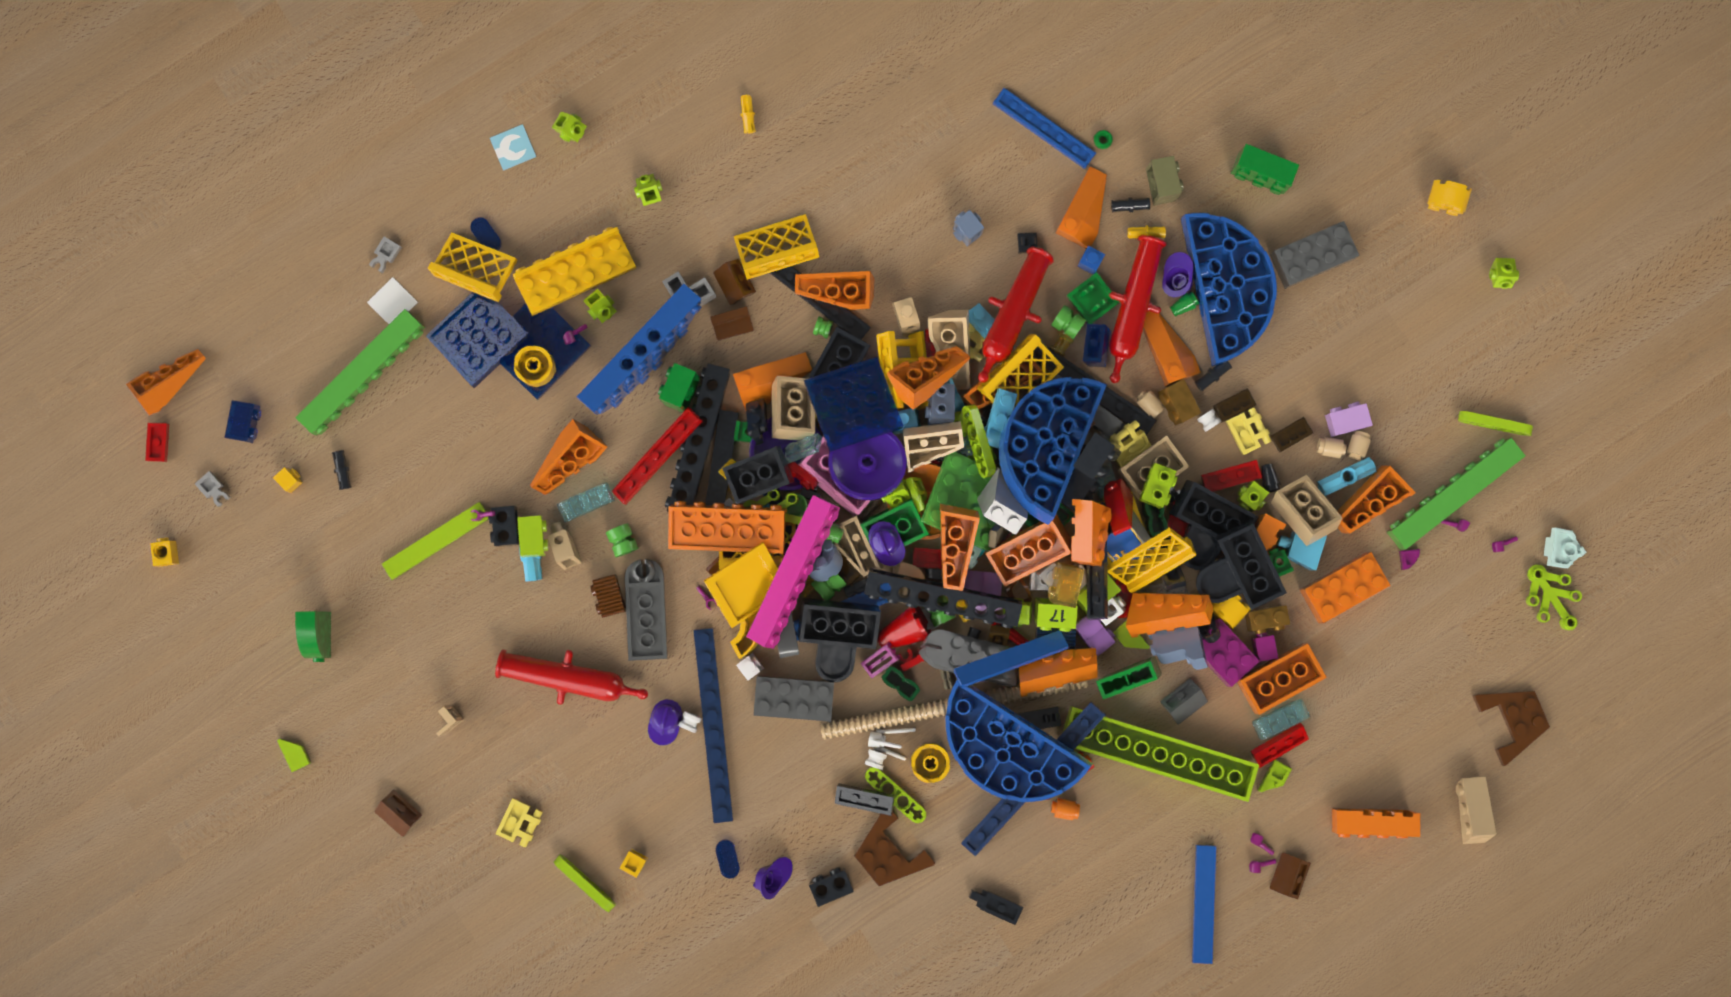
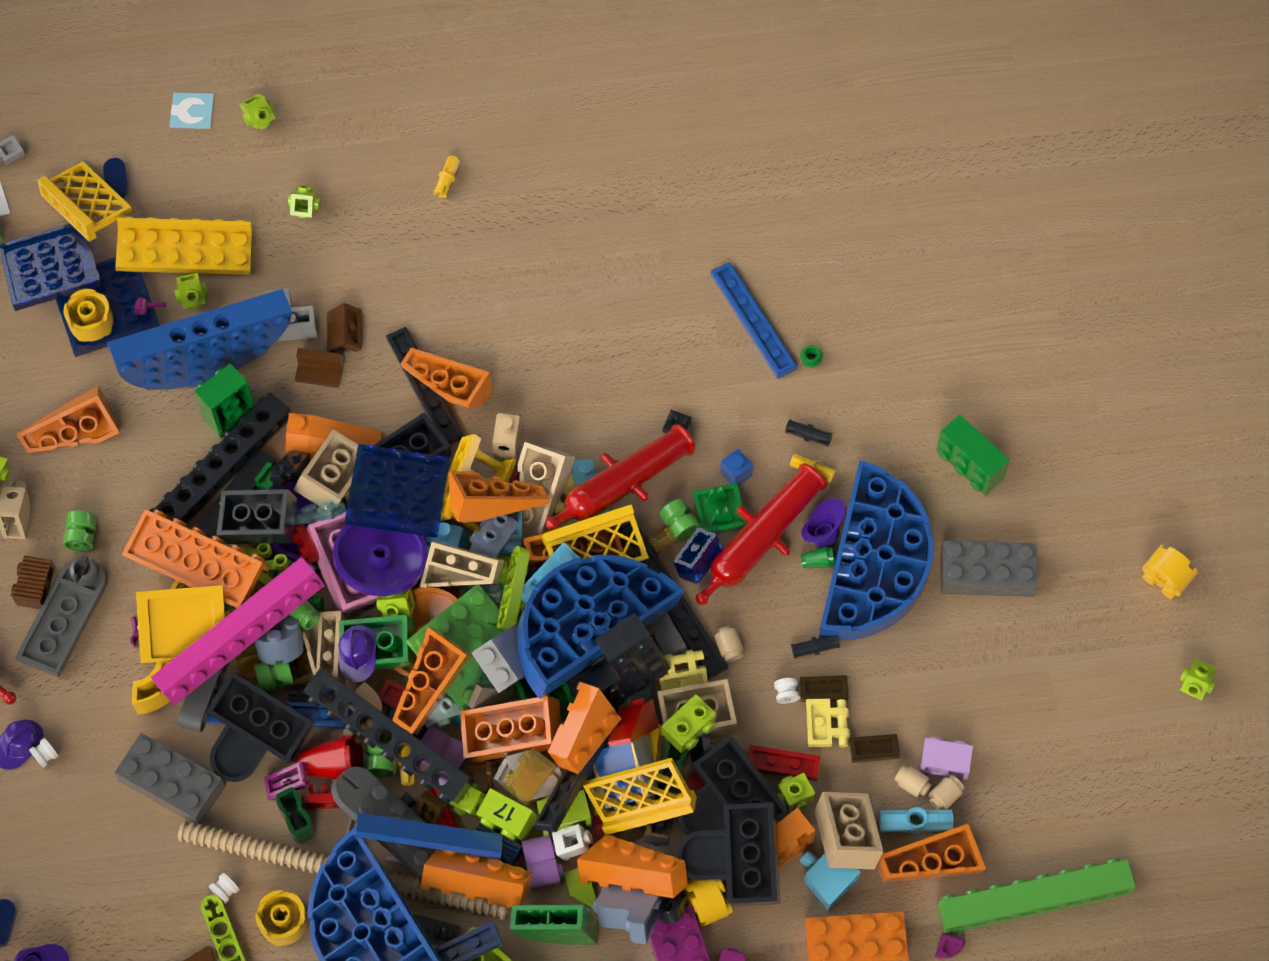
camera: 30 degrees right, 20 degrees down
(585, 502) = (64, 477): clear light blue beam -> none
(657, 456) = (164, 462): red tile -> none
(713, 725) = (66, 772): dark blue plate -> none
(750, 666) = (141, 722): white brick -> none
(785, 258) = (405, 324): yellow fence -> none
(823, 327) = (410, 410): bright green wheel -> none
(864, 799) = (187, 925): plate -> none
(877, 741) = (239, 869): white plant -> none
(917, 492) = (420, 613): lime tile -> none
(967, 227) = (618, 377): sand blue brick -> none
(1084, 212) = (754, 417): orange wedge -> none
(1164, 180) = (856, 420): olive brick -> none
(1169, 351) = (779, 604): orange wedge -> none
(1179, 402) = (761, 655): pearl gold brick -> none
(1266, 618) = (748, 936): pearl gold brick -> none
(1270, 479) = (827, 782): black cone -> none
(1285, 567) = (791, 889): green brick -> none
(1462, 525) = (1027, 938): magenta hand -> none
(1495, 423) = (1118, 839): lime beam -> none

